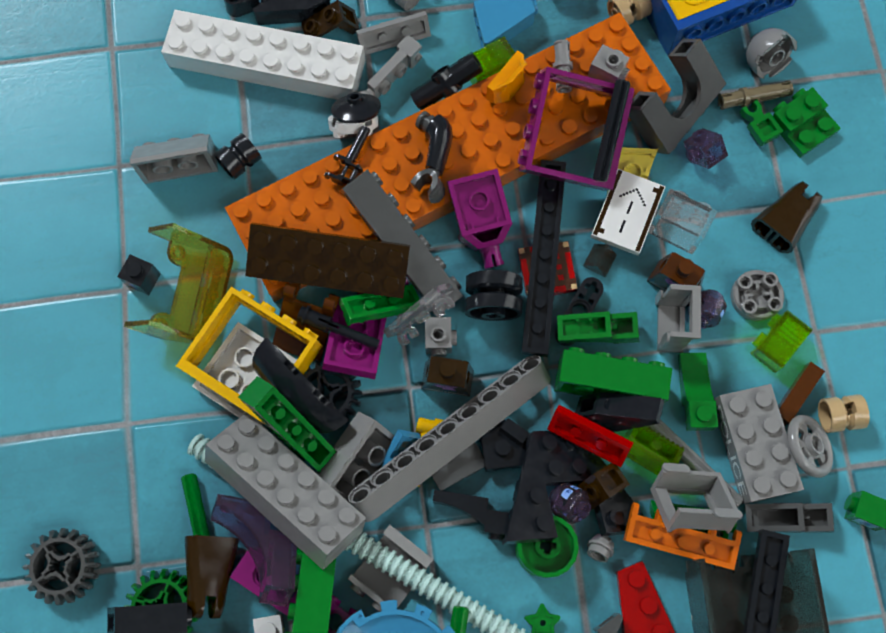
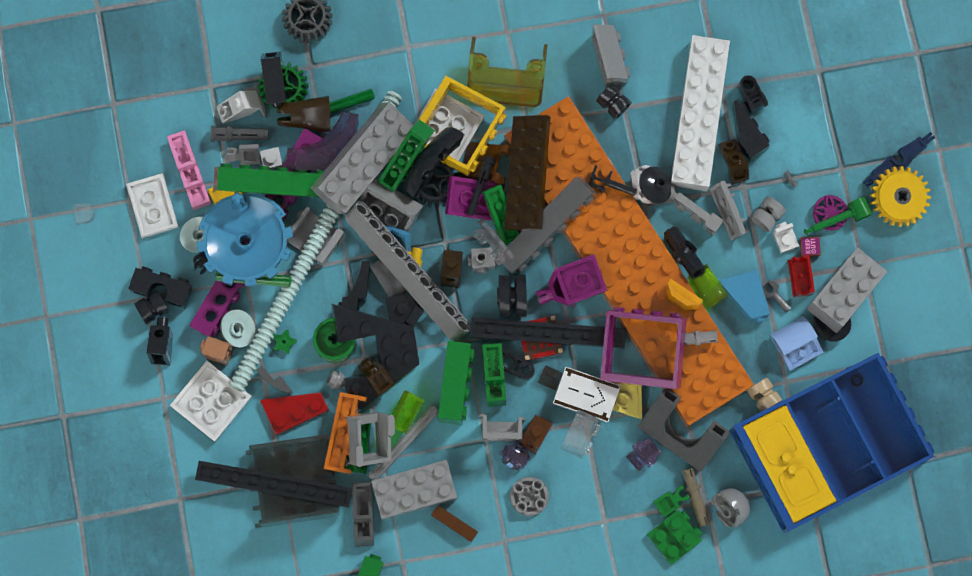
camera: 85 degrees right, 5 degrees up
(139, 274) = (515, 41): black brick -> none
(440, 137) = (629, 246): piece -> none
(570, 503) = (364, 354): clear purple head -> none
(590, 435) = (411, 366): red plate -> none
(609, 65) = (698, 373): light grey brick -> none
(611, 130) = (642, 373): black axle -> none
(620, 411) = (429, 384): black slope -> none
(697, 393) = (451, 448): green slope -> none
(780, 341) = (493, 510): clear neon green brick -> none
(787, 218) = (593, 520): dark brown piece -> none
(810, 446) = (413, 513): light grey plate -> none
(843, 413) = (437, 547): tan wheel -> none

